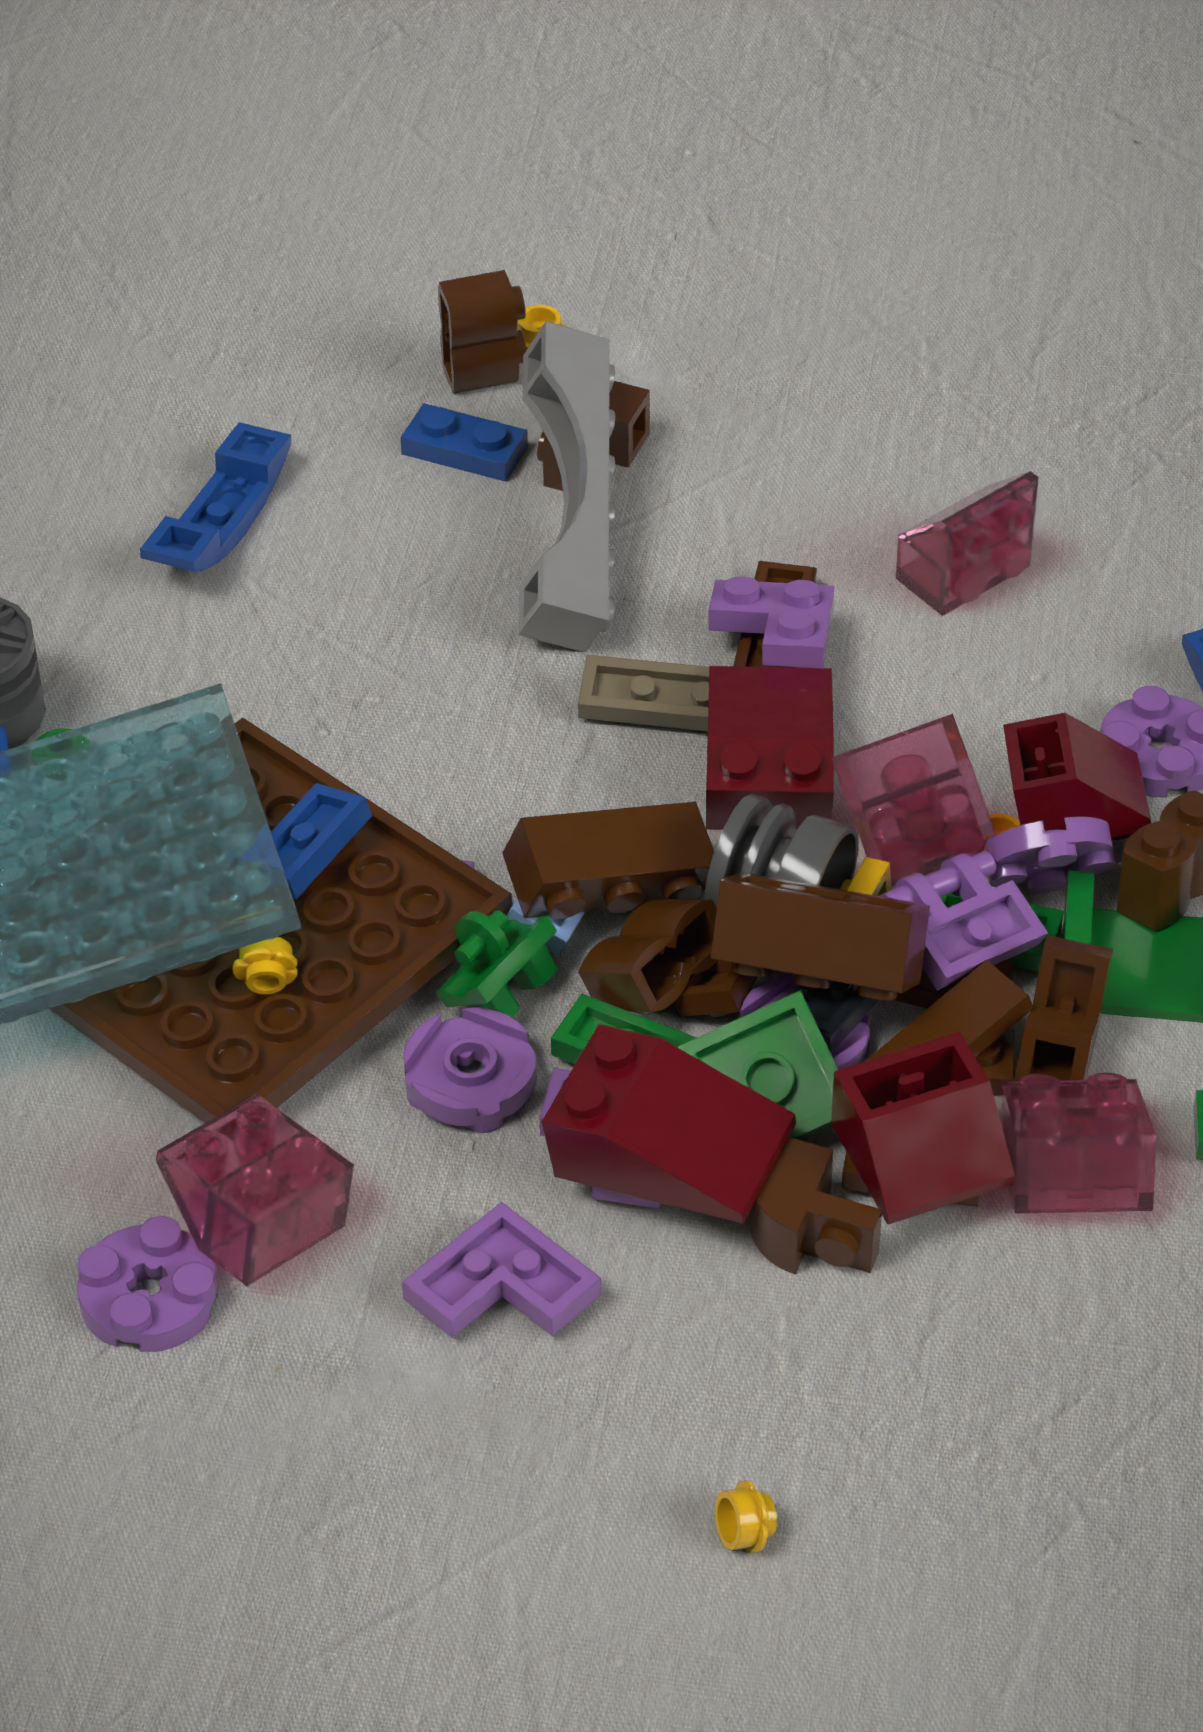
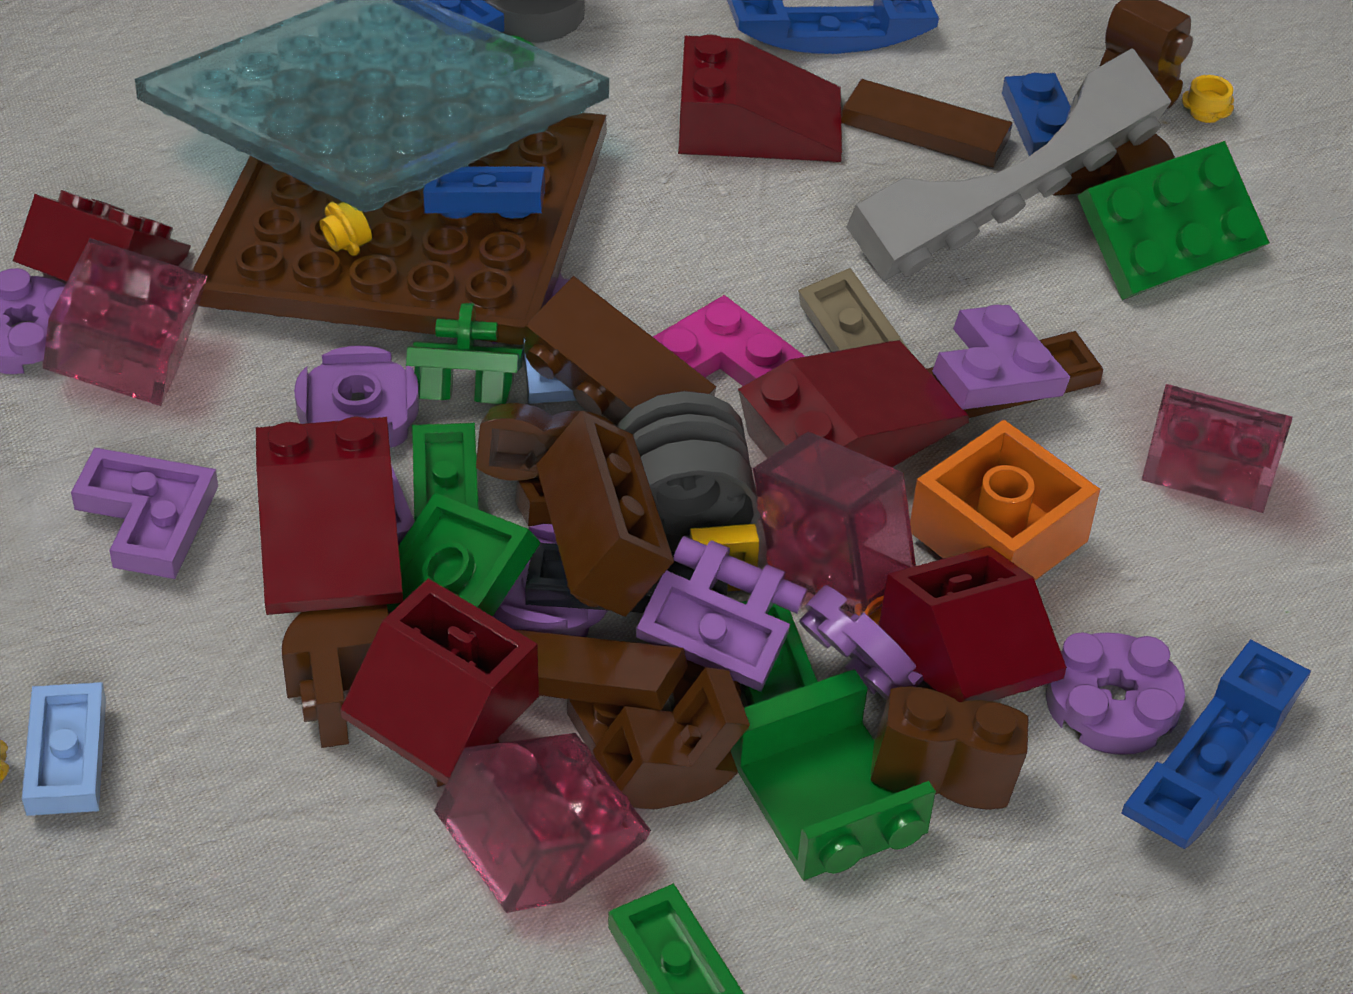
camera: 55 degrees right, 0 degrees up
(99, 1179) = (61, 228): none -> dark red slope
(289, 621) = (755, 104): none -> dark red slope
(408, 519) = (926, 122): none -> reddish brown tile
(603, 778) = (728, 340): none -> dark pink plate
(691, 429) = (1173, 219): none -> green plate
(769, 1444) = (64, 749): none -> light blue plate
(955, 675) = (1006, 497): none -> orange brick

